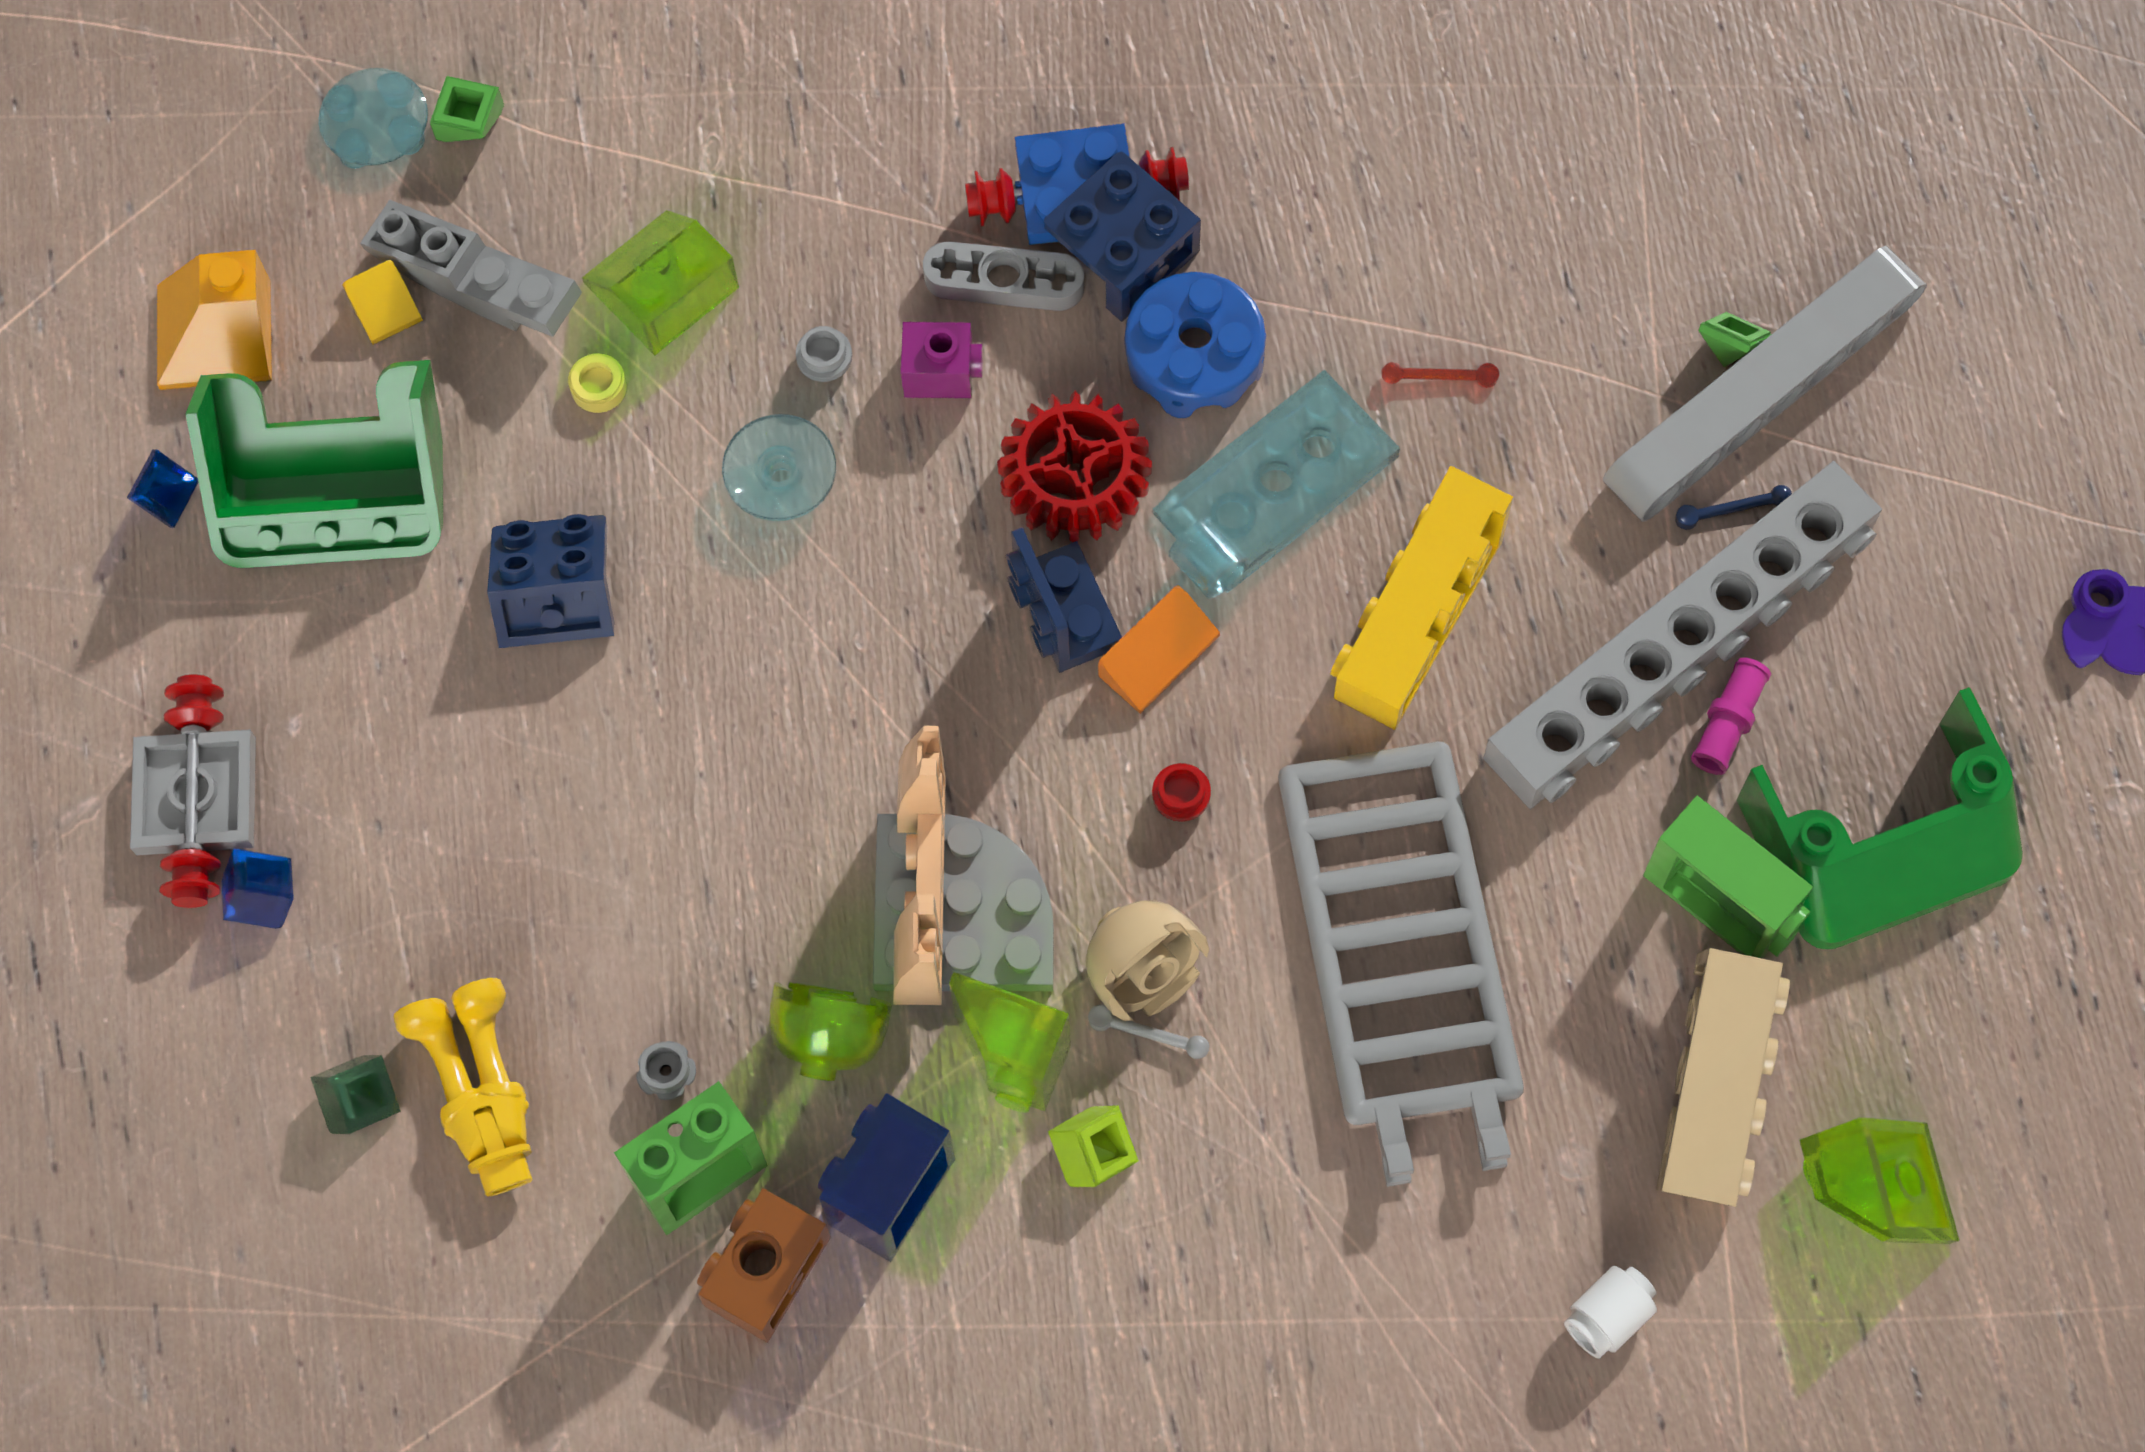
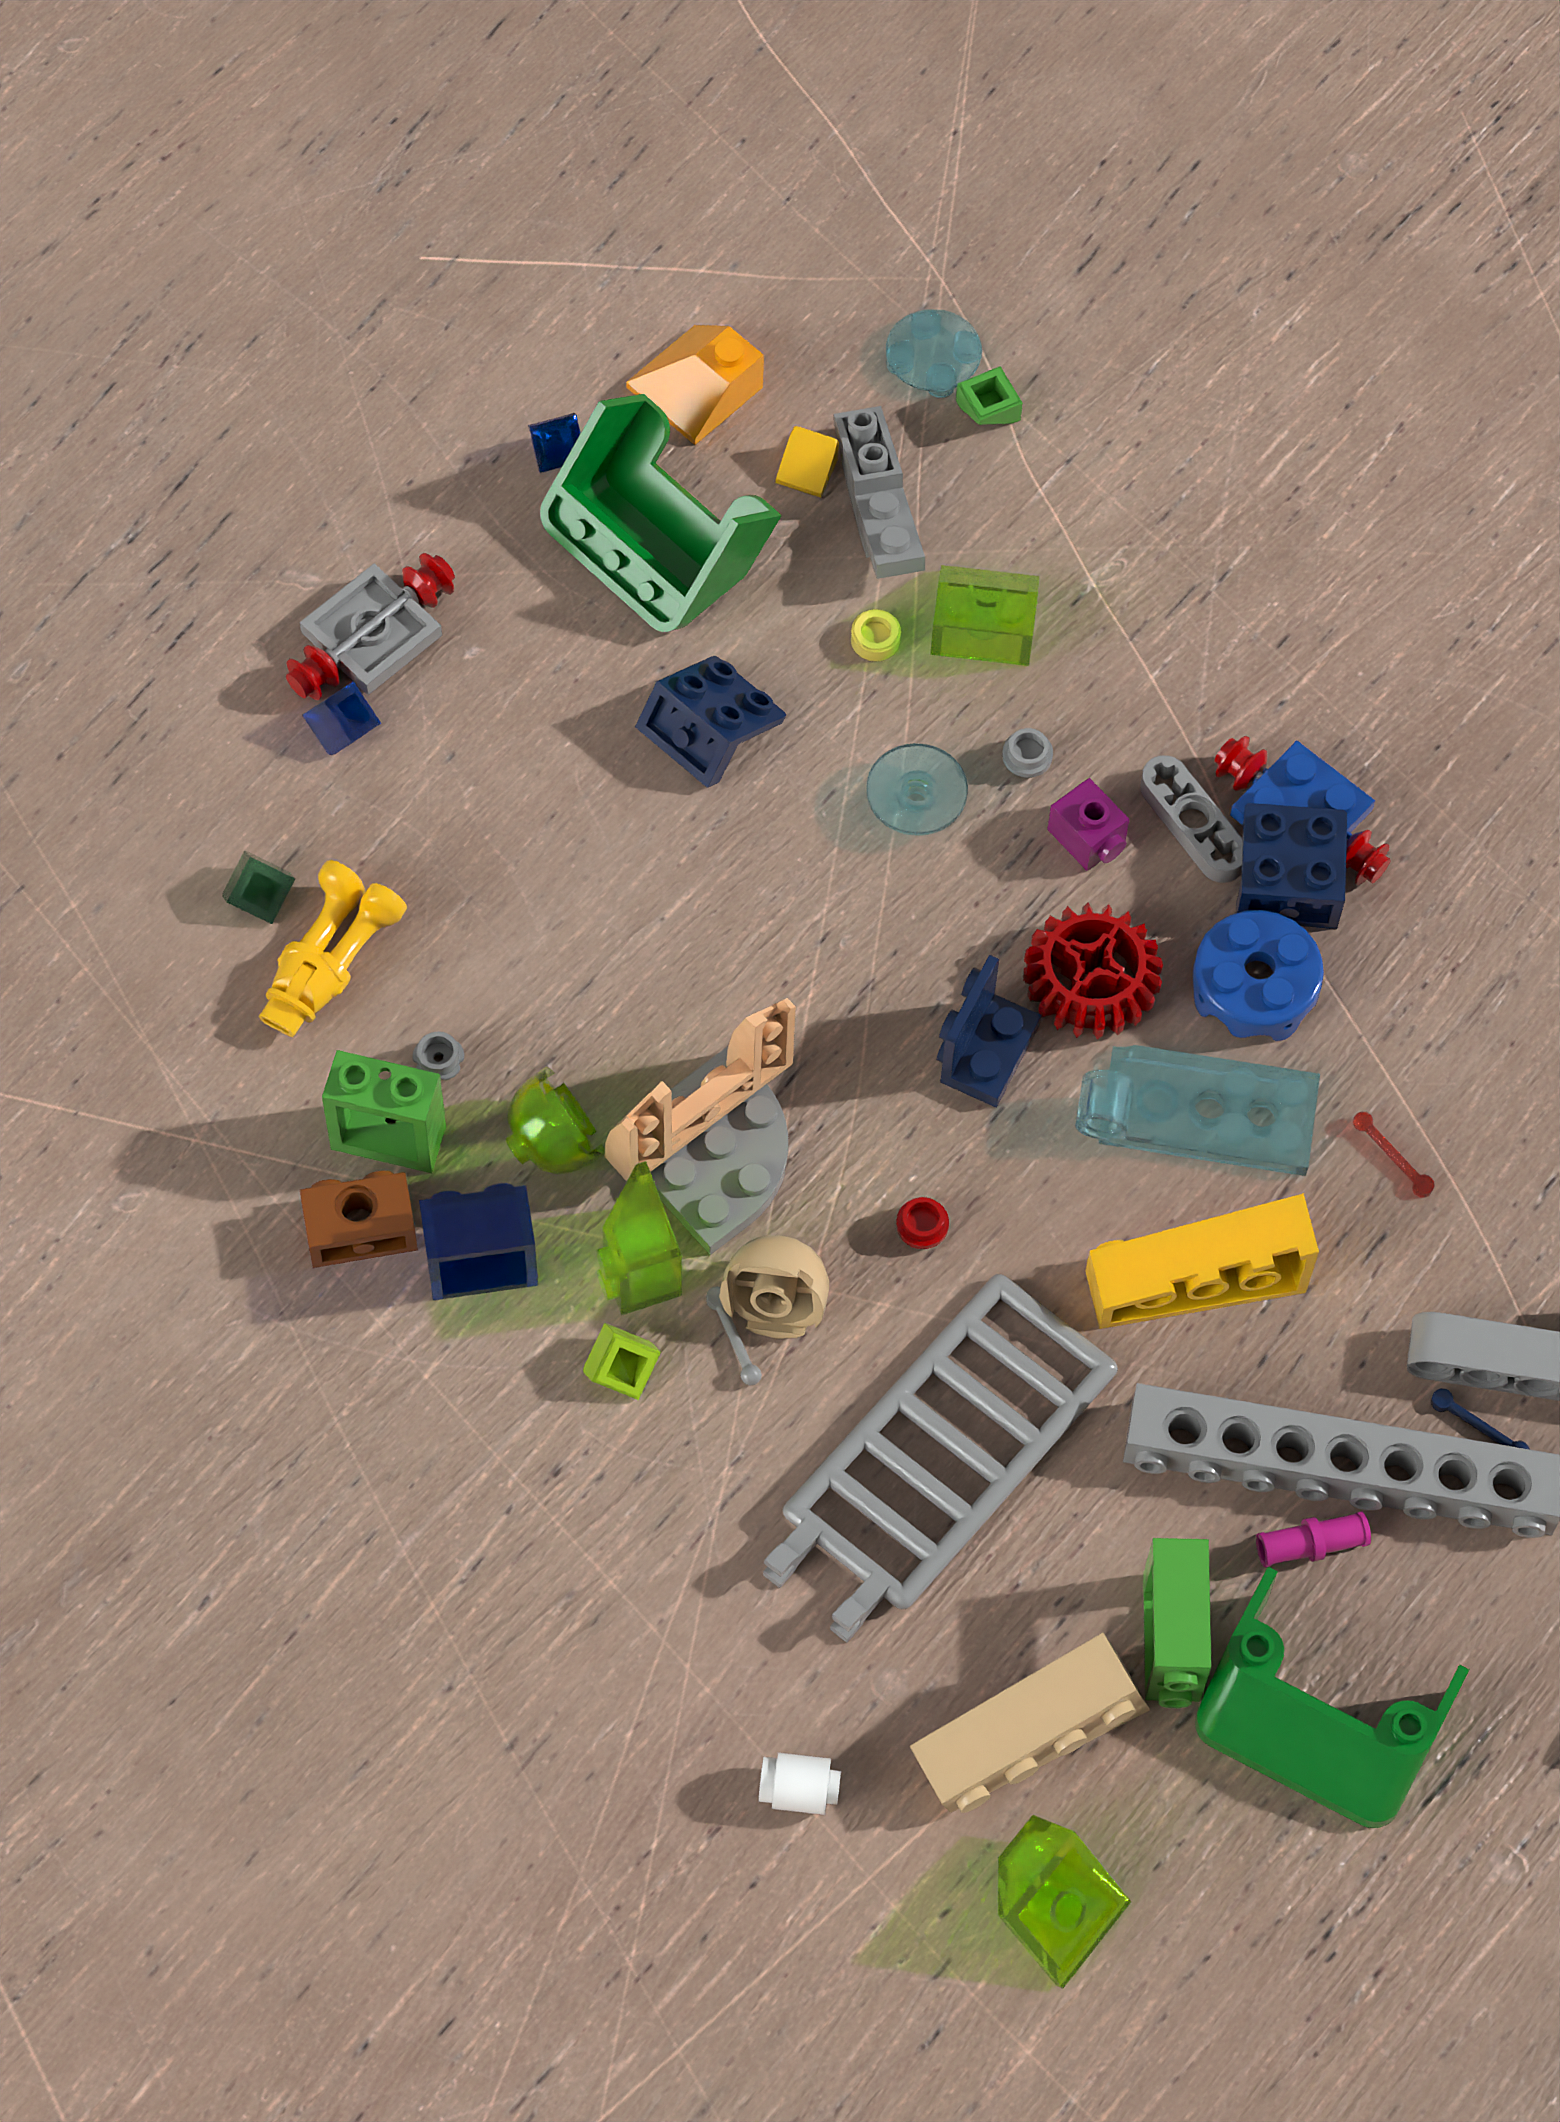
camera: 45 degrees right, 5 degrees down
(1157, 649) = (1012, 1127): orange slope -> none

